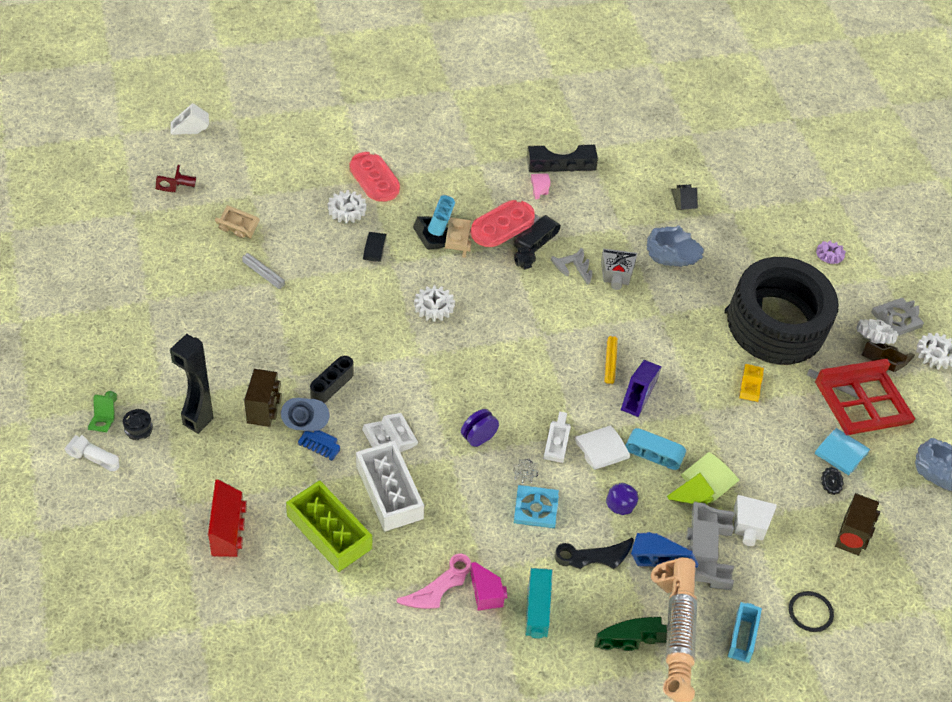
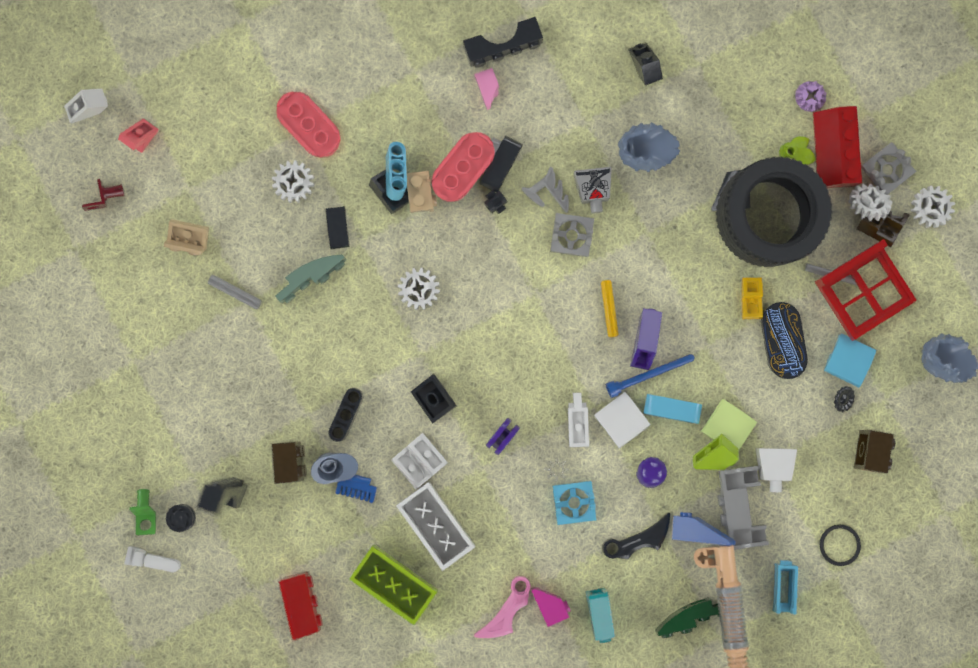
camera: 10 degrees left, 35 degrees up
(224, 150) = (138, 135): none -> coral slope
(340, 269) = (317, 270): none -> sand green slope
(422, 386) = (433, 398): none -> black slope
(595, 313) = (581, 251): none -> light grey piece
(601, 420) = (615, 388): none -> blue piece
(778, 422) = (784, 340): none -> black tile
(853, 287) = (837, 146): none -> red slope

